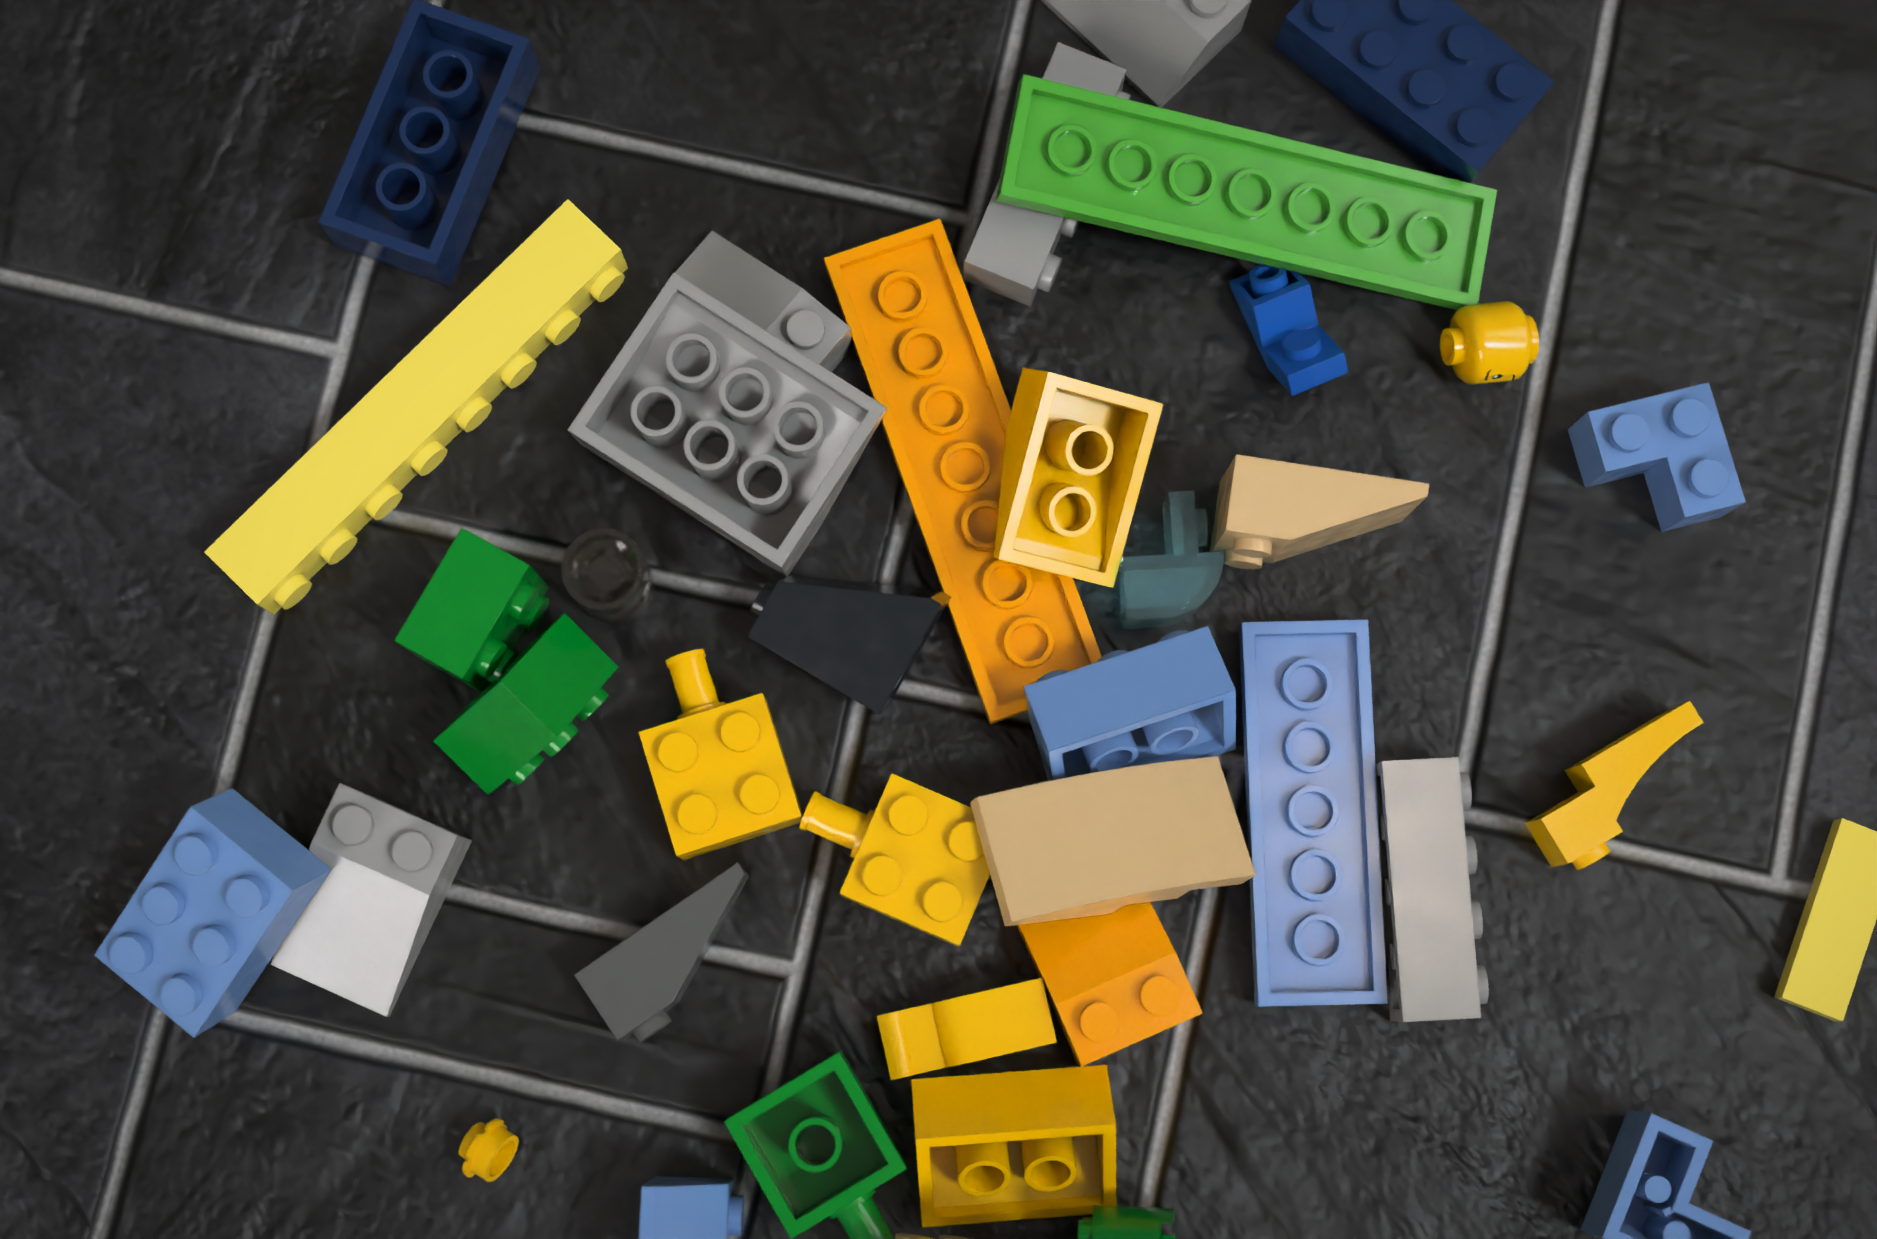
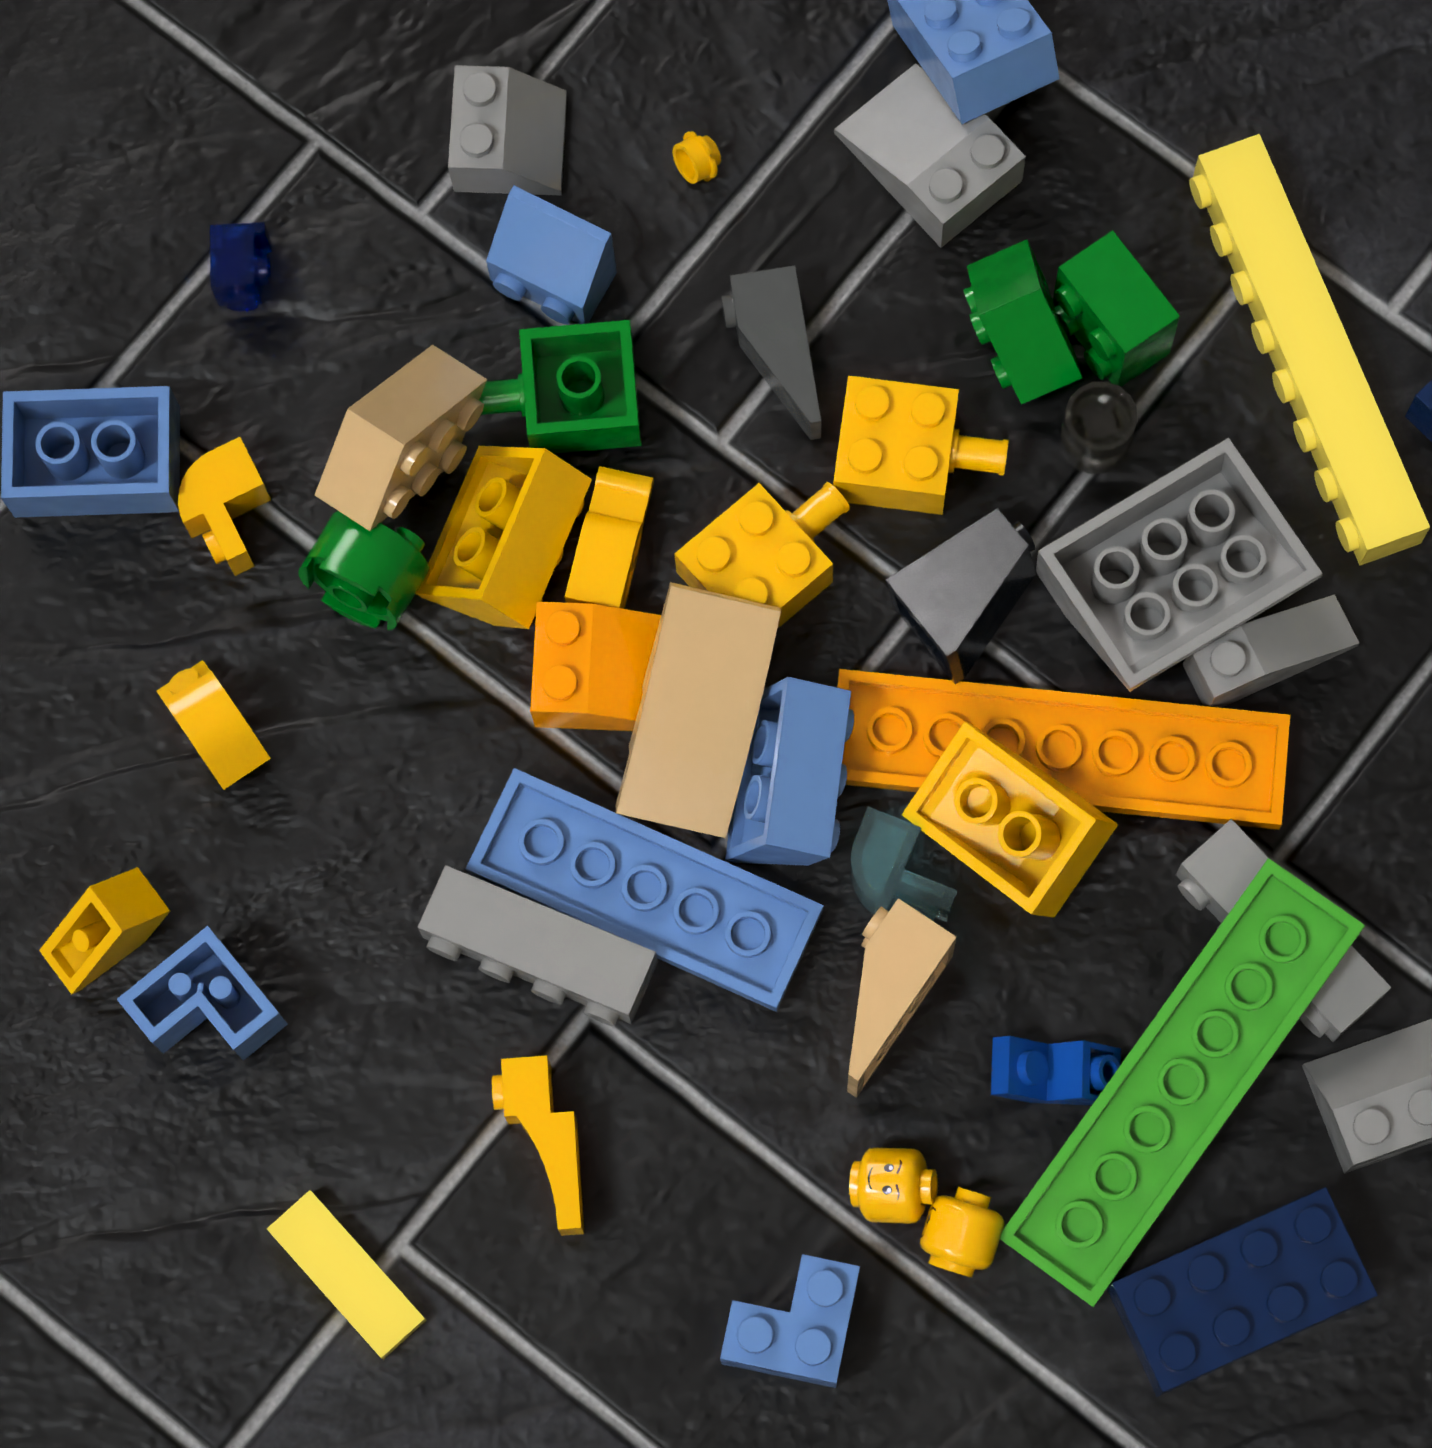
camera: 125 degrees right, 5 degrees down
(1480, 427) = (892, 1185): none -> yellow head

